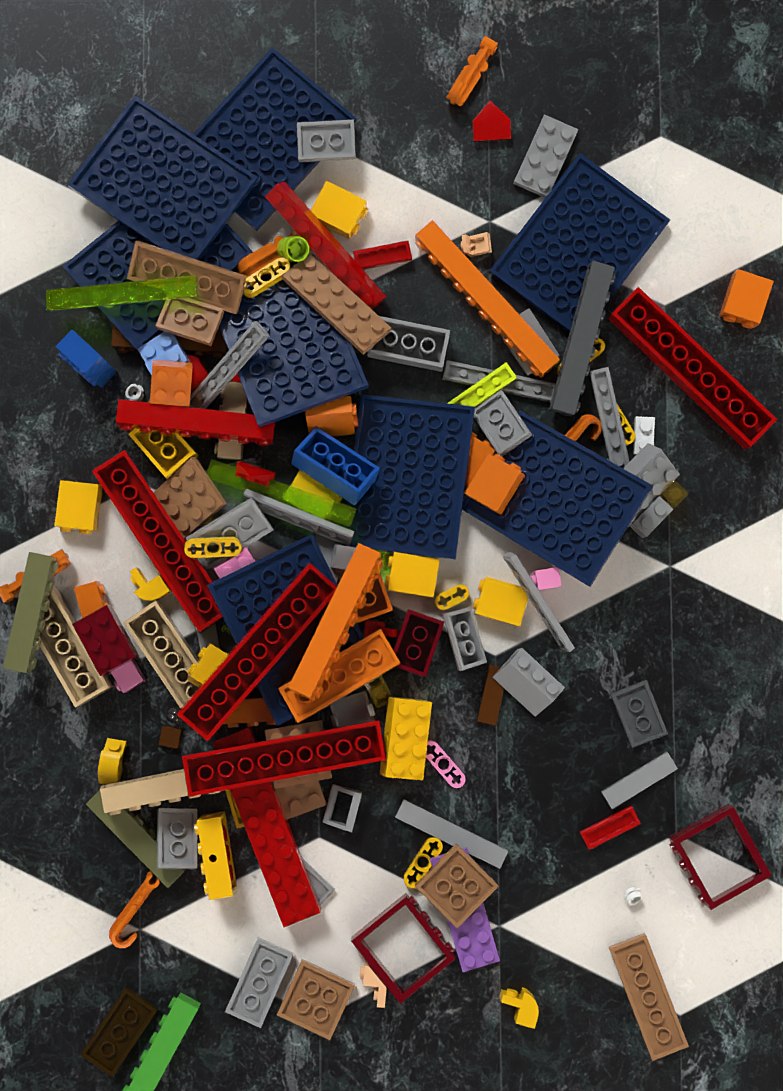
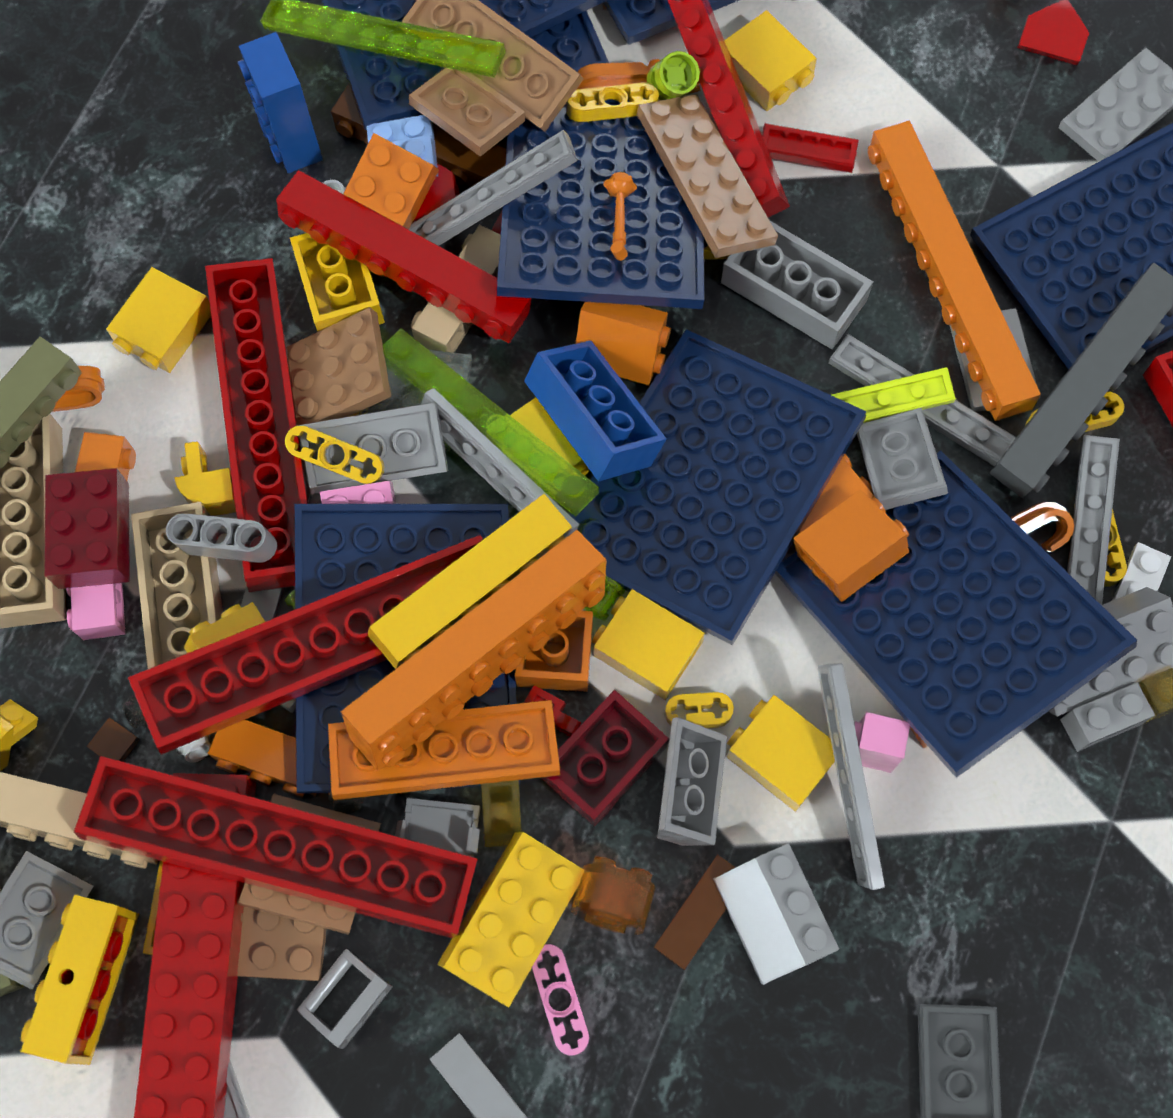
camera: 30 degrees right, 15 degrees down
(169, 617) = (208, 529): none -> light grey beam
(254, 473) = (458, 372): red slope -> none
(295, 334) = (619, 186): none -> orange piece
(317, 591) = (469, 581): none -> yellow brick
(449, 708) = (614, 896): none -> clear orange brick
(476, 244) = (965, 185): light nougat bracket -> none

